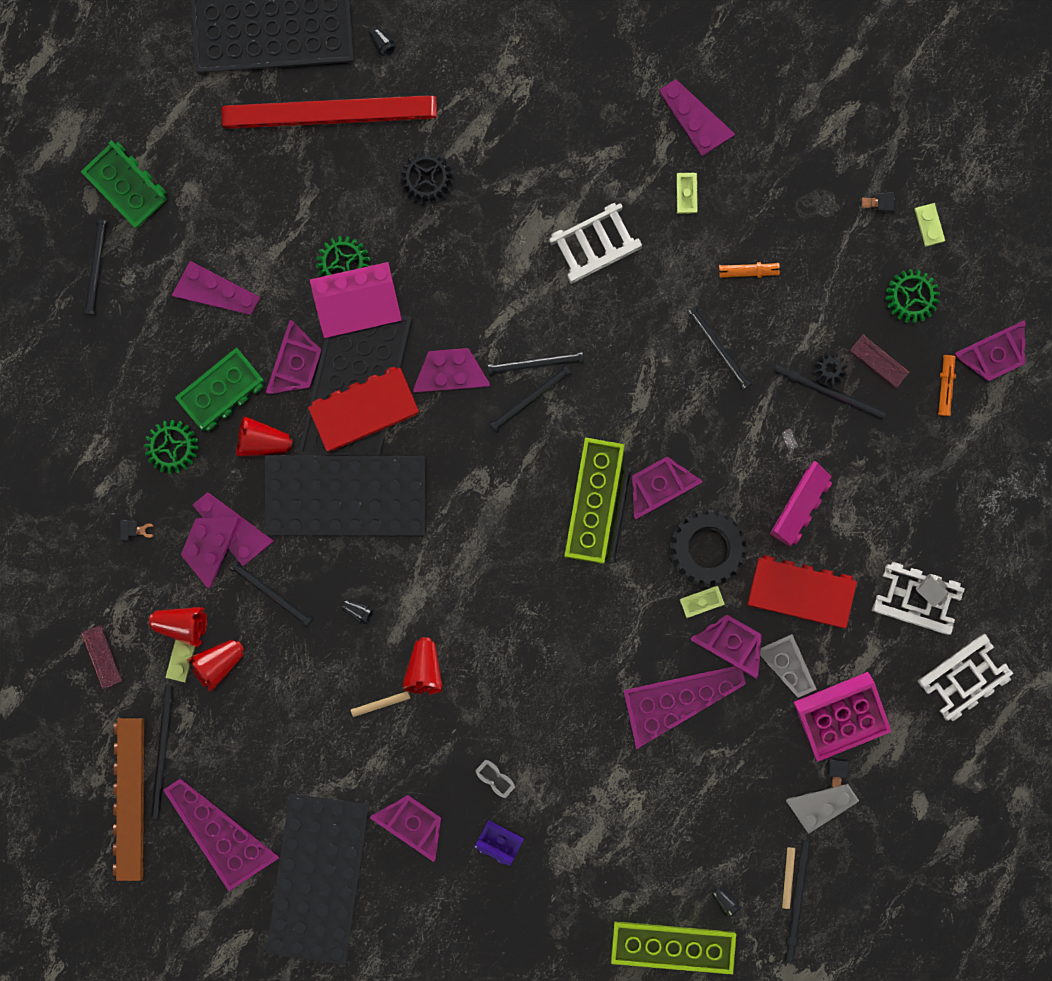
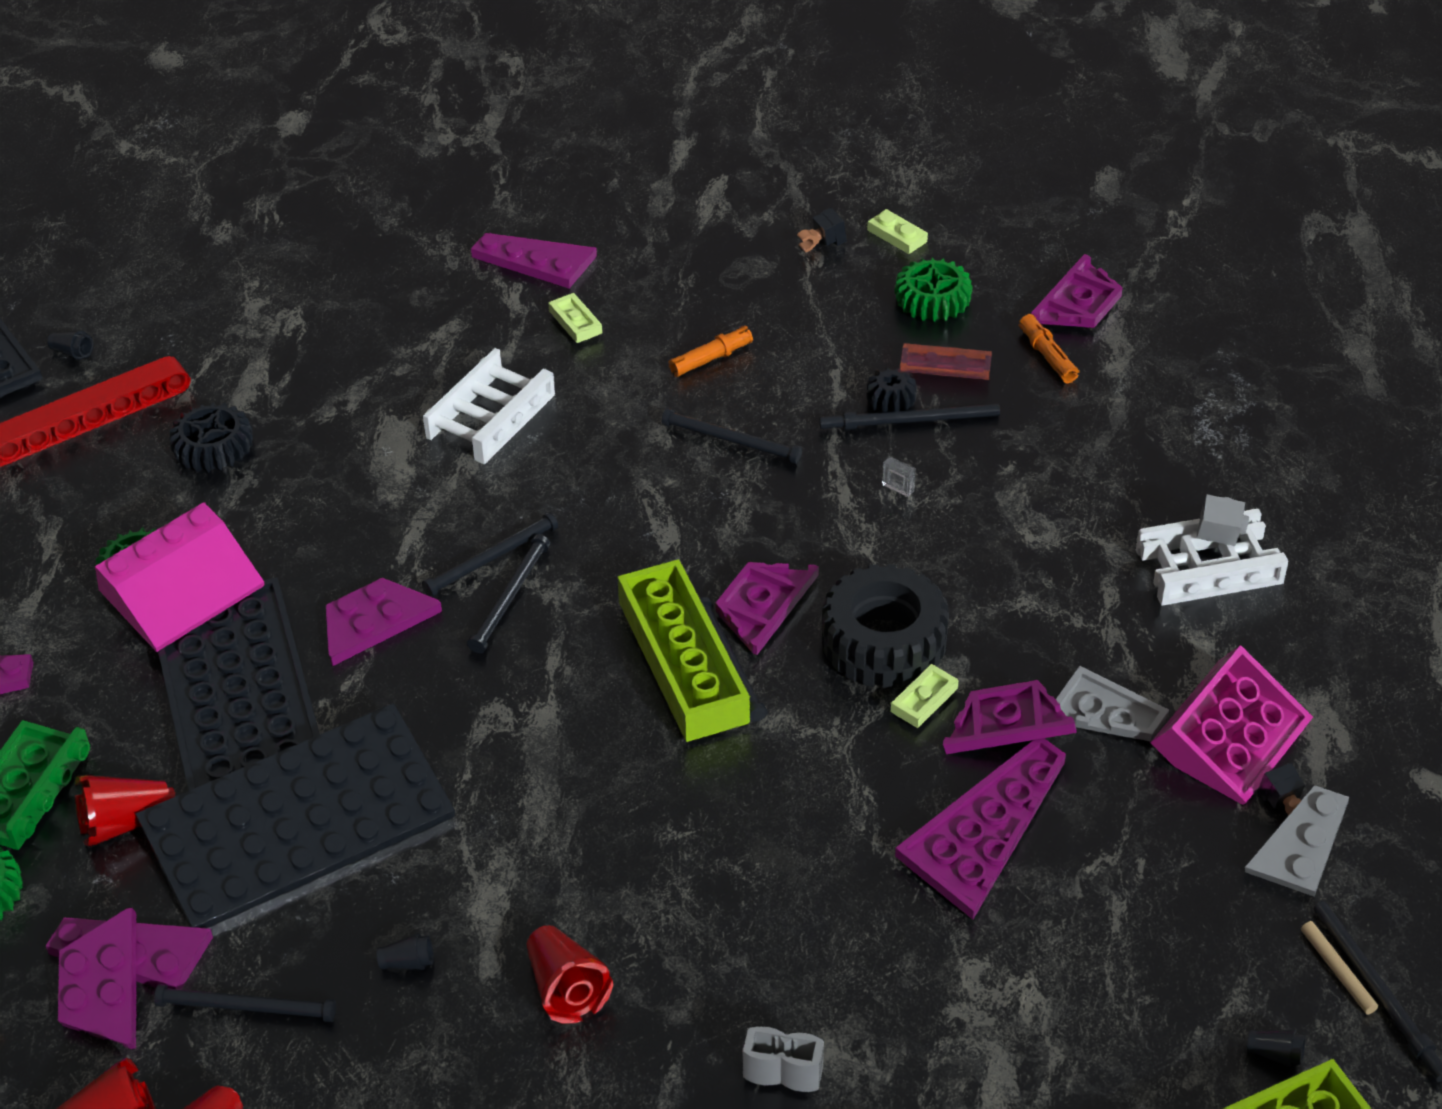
camera: 35 degrees left, 40 degrees down
(295, 362) = (126, 703): magenta wing -> none
(363, 409) = (265, 694): red brick -> none
(380, 704) = (521, 1065): tan bar -> none
(801, 504) = (970, 522): dark pink slope -> none
(802, 592) = (1052, 620): red brick -> none
(956, 664) = (1359, 586): white fence -> none

